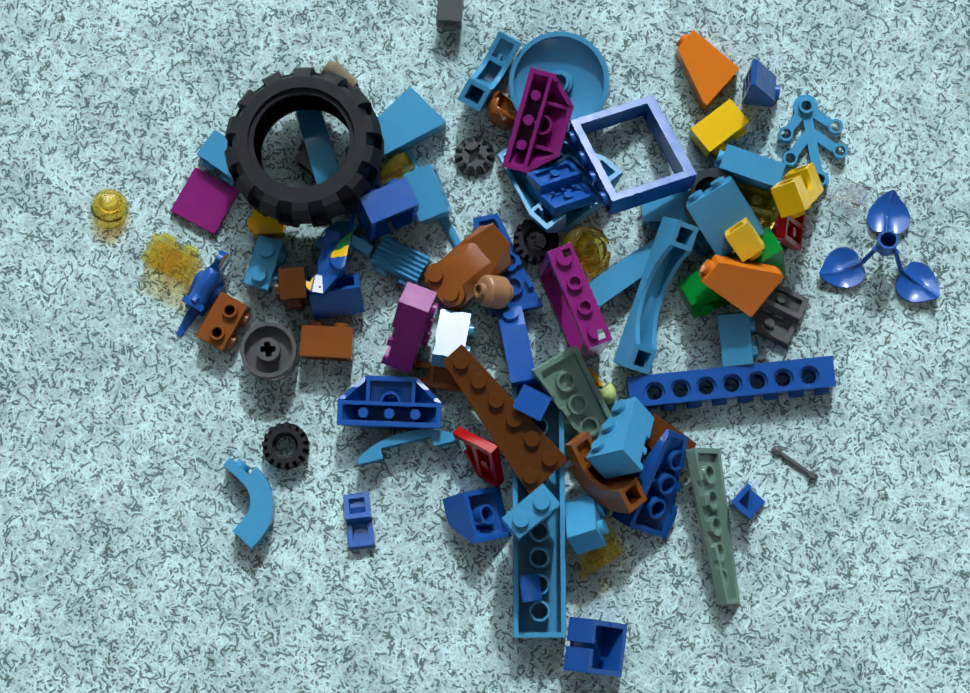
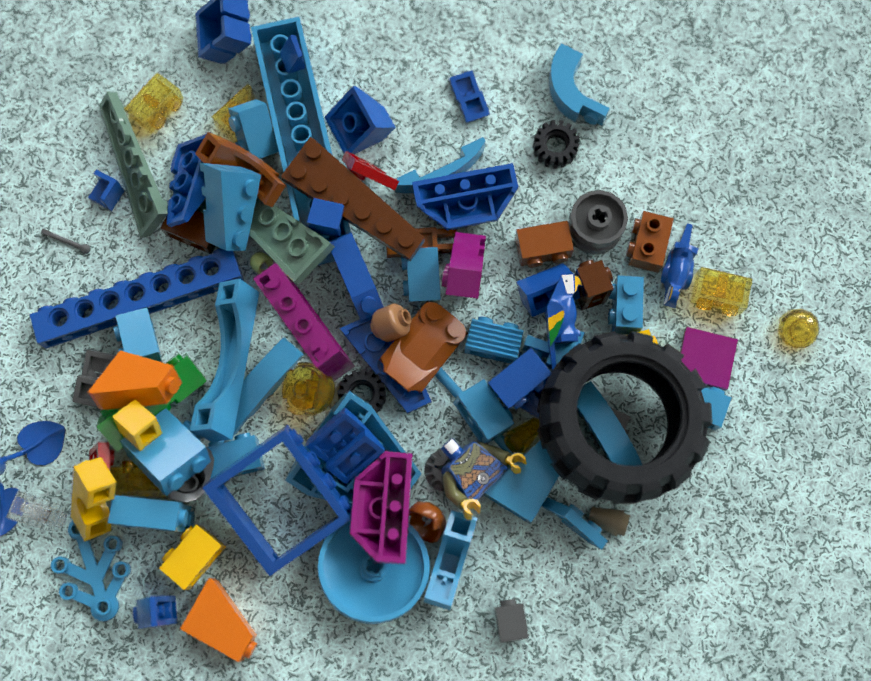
camera: 165 degrees right, 5 degrees down
(370, 78) = (572, 517): none -> dark azure wing
(451, 141) = (474, 471): none -> torso
(530, 512) = (303, 108): dark azure brick -> none
(681, 587) = (154, 103): none -> clear yellow brick

